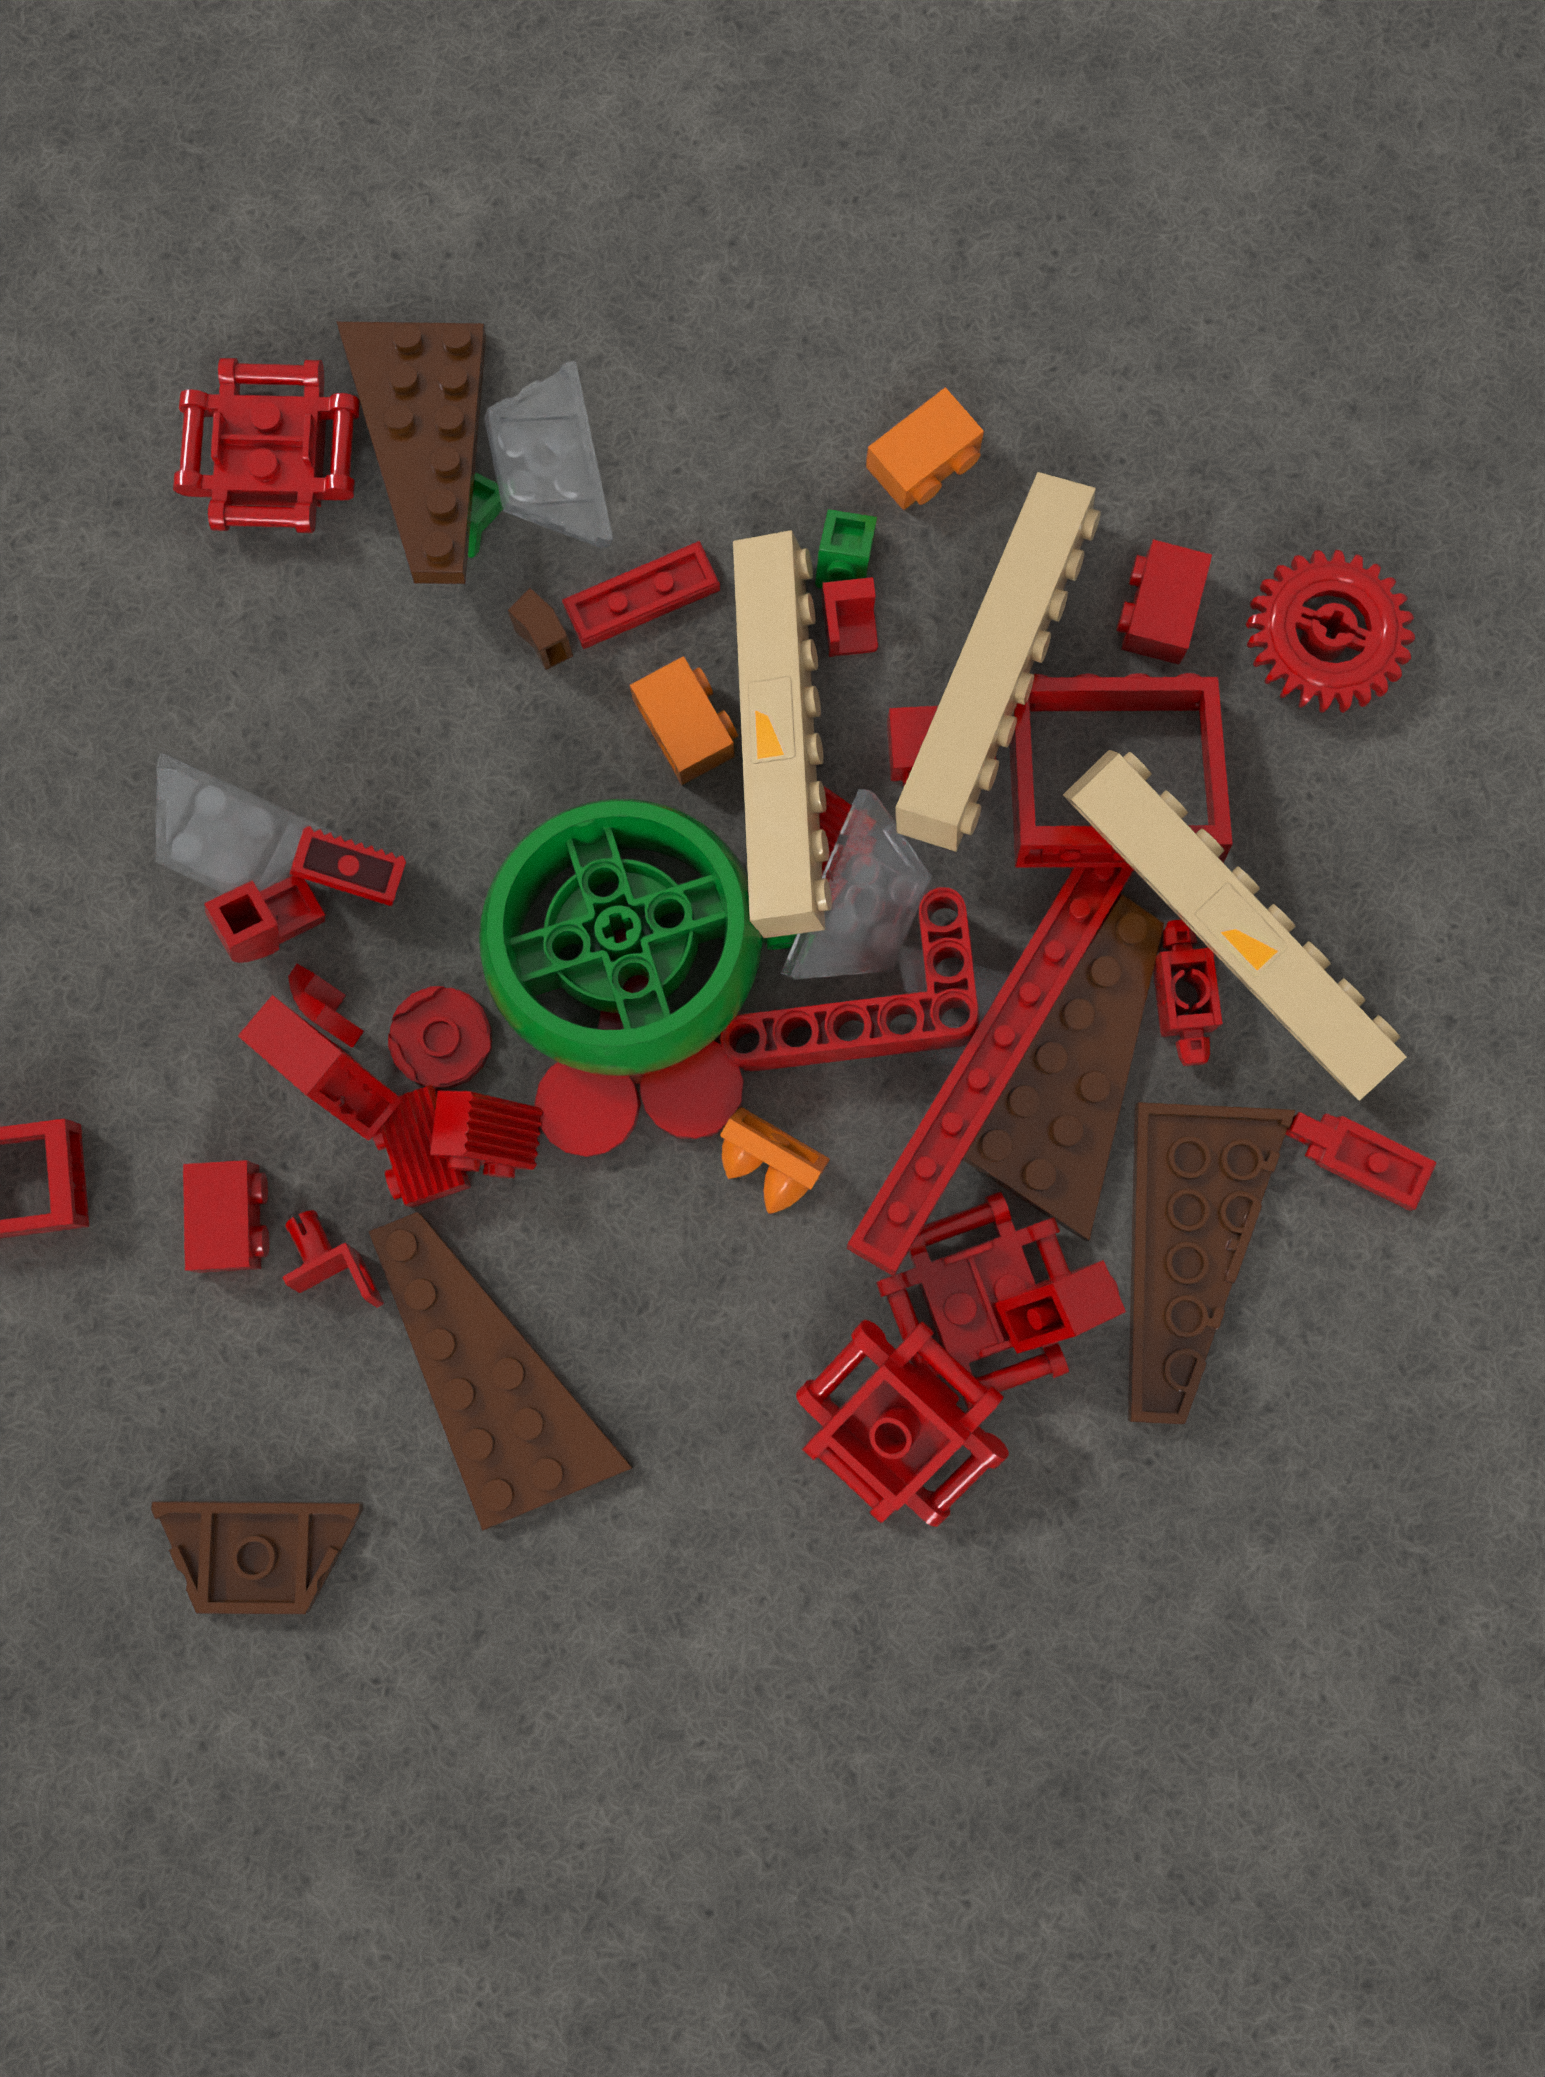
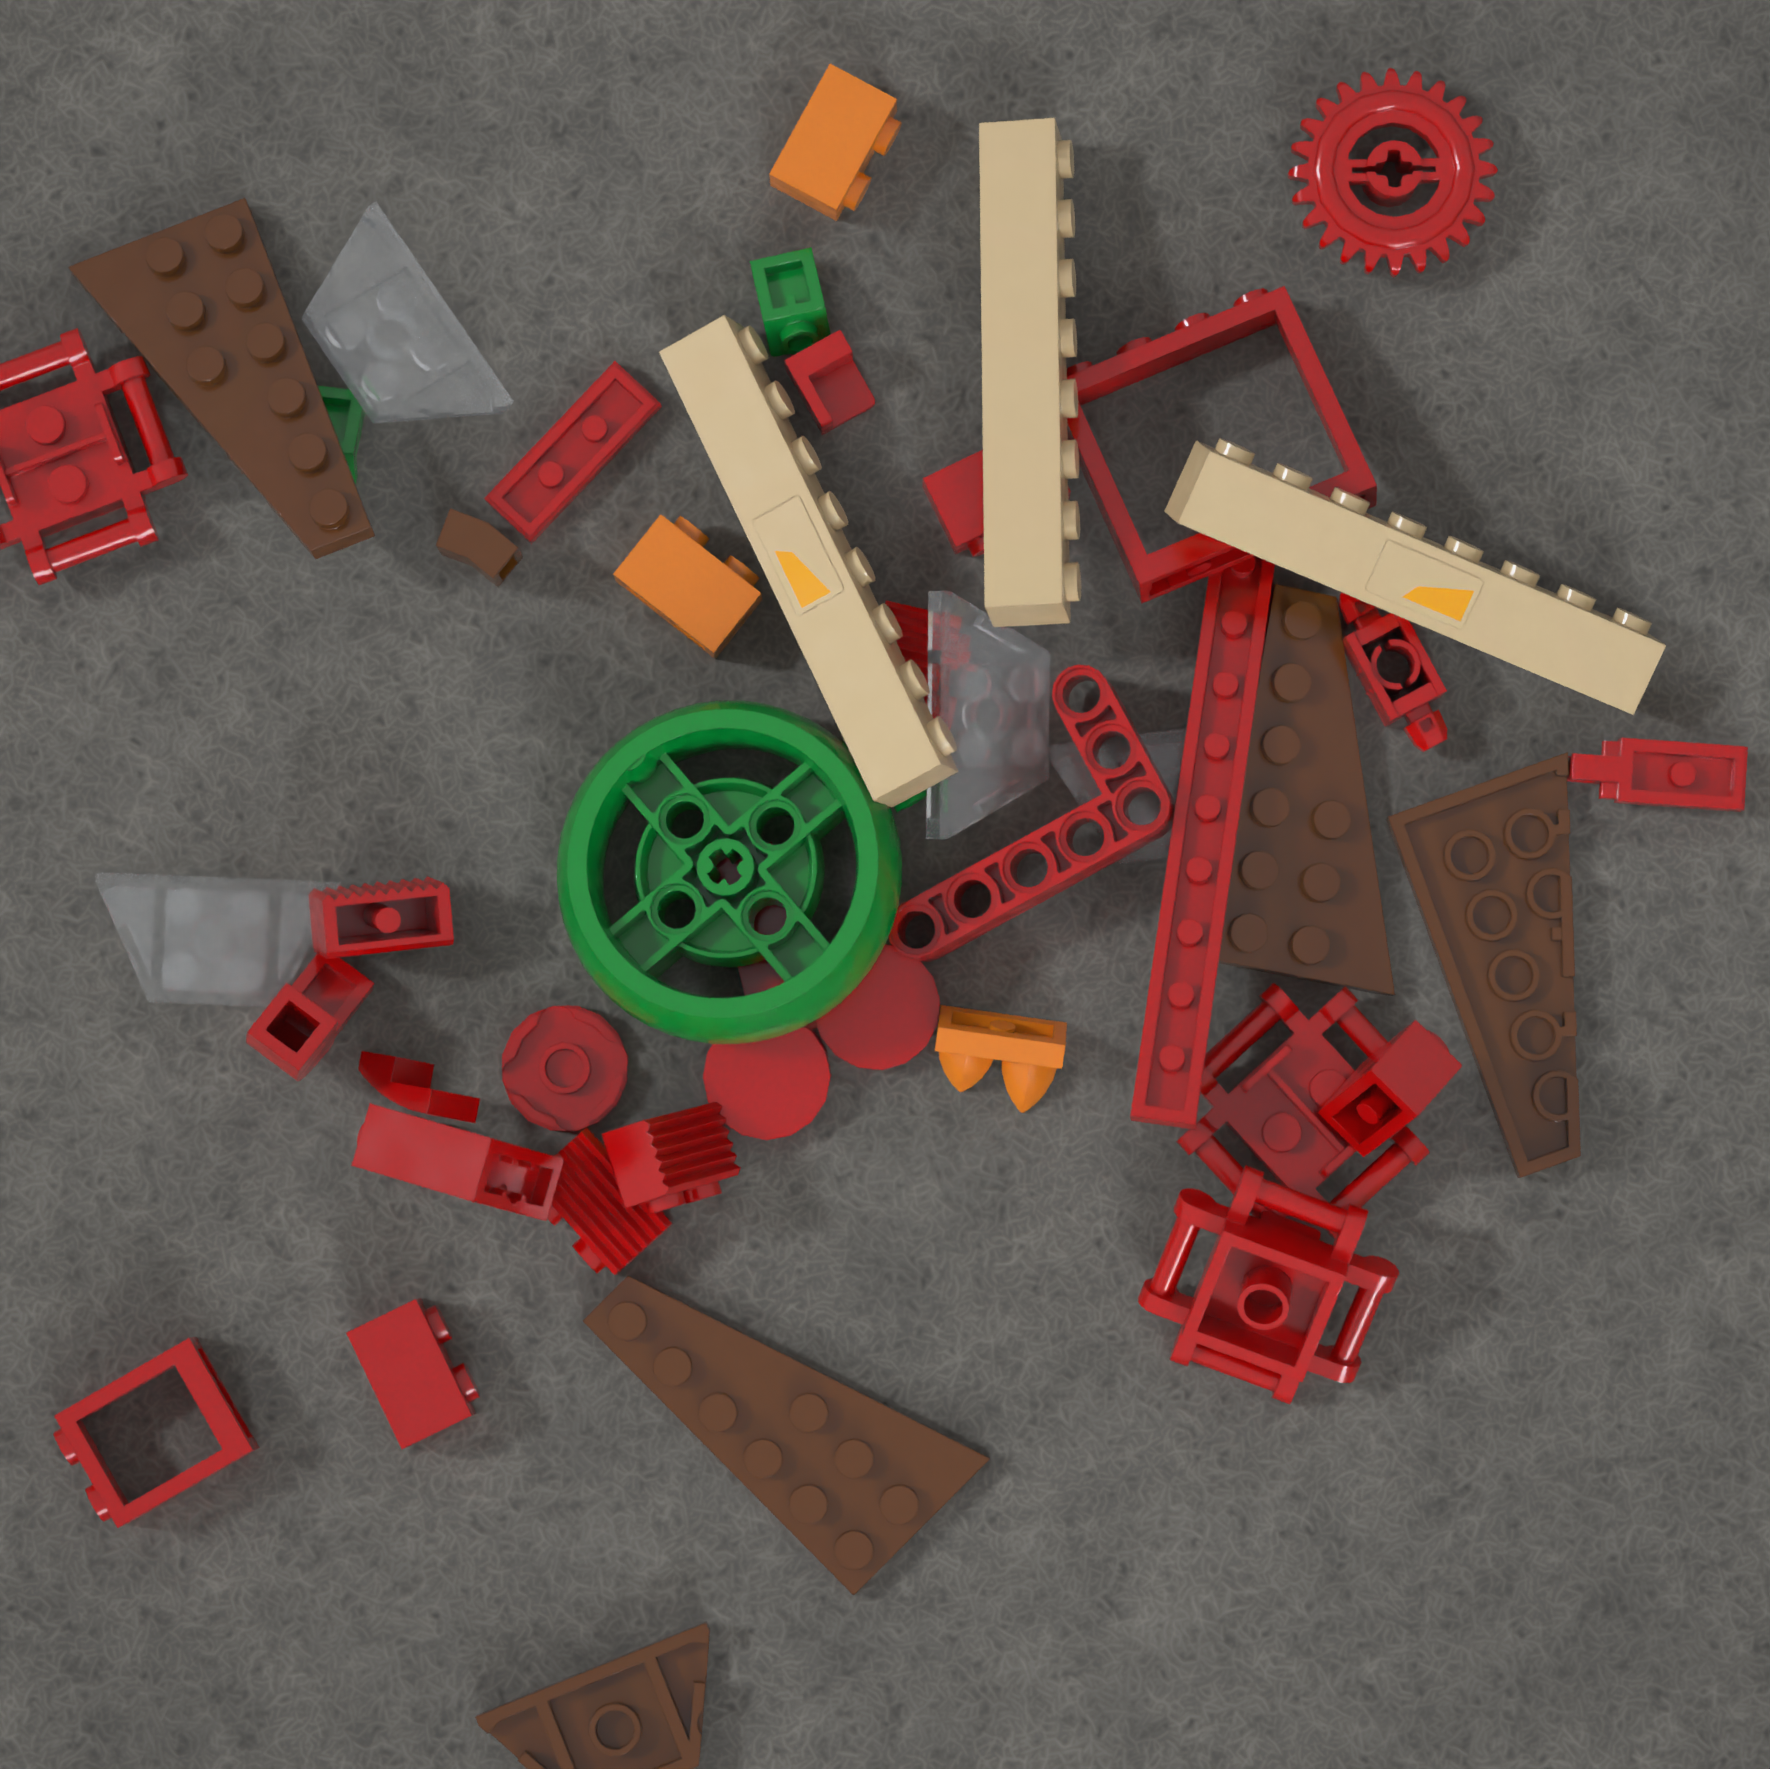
camera: 25 degrees left, 5 degrees up
(323, 1261) = (545, 1374): red bracket -> none
(1165, 601) = (1187, 214): red brick -> none

